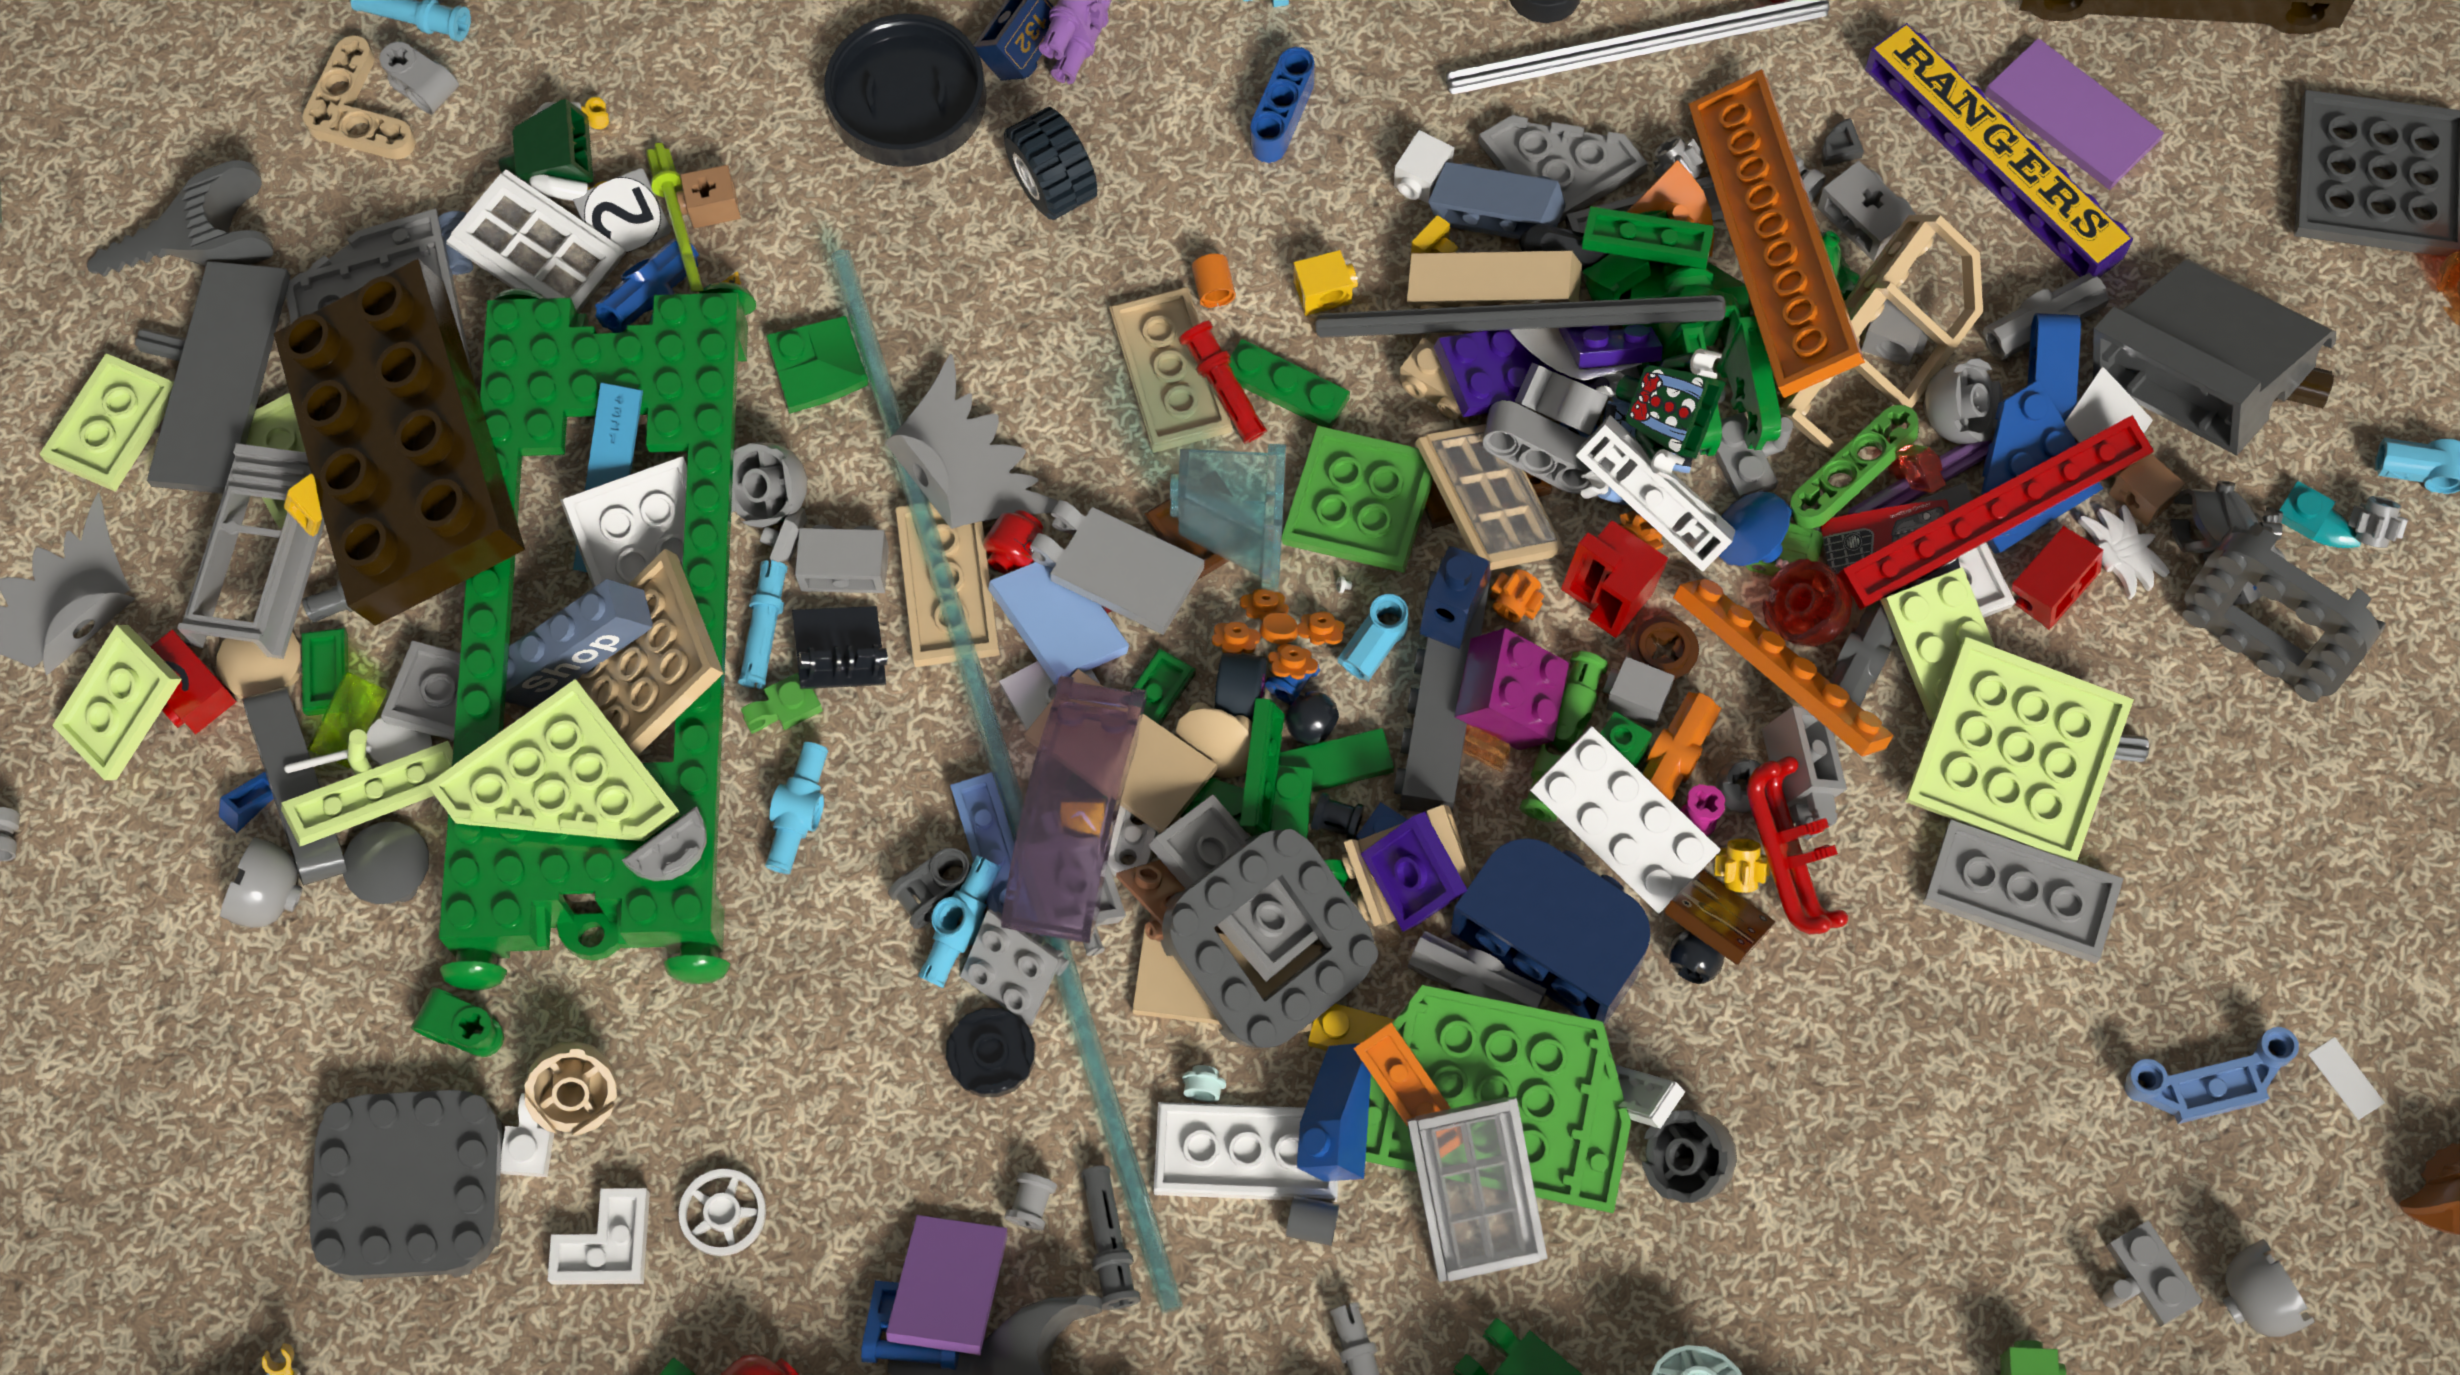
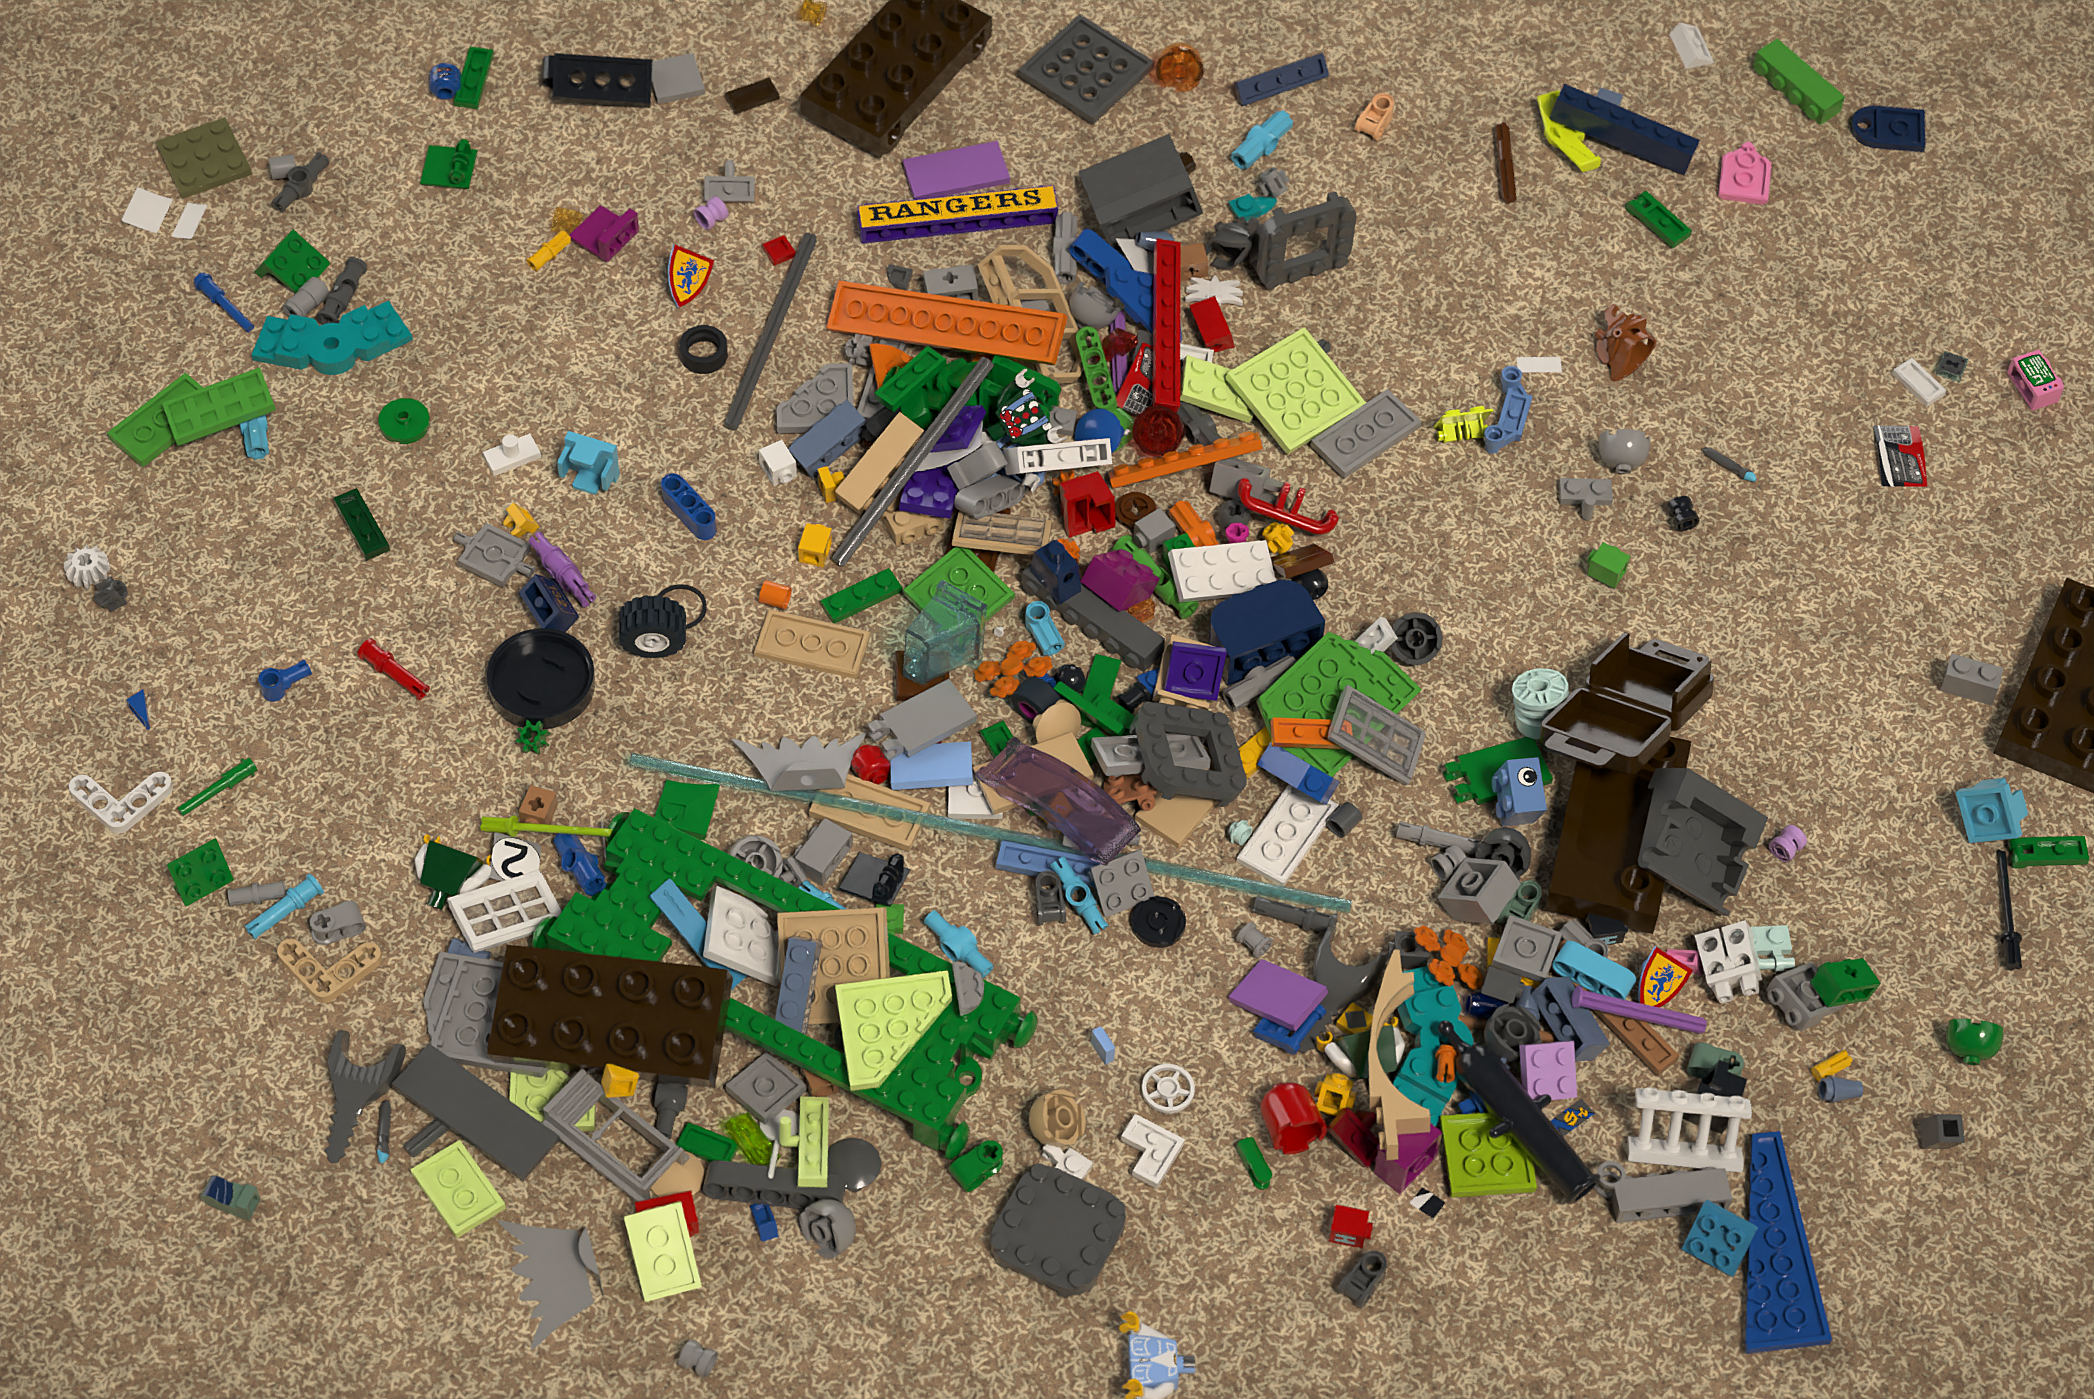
camera: 65 degrees left, 10 degrees down
(156, 297) = (384, 1131): none -> dark grey piece
(736, 1085) = (1103, 1045): none -> light blue tile
(811, 130) = (526, 733): none -> green gear
(1144, 214) = (696, 591): none -> black piece
(1214, 365) = (833, 617): red pin -> none
(2127, 1000) = (1454, 420): none -> neon yellow hinge
(2150, 420) = (1147, 239): none -> sand blue cone

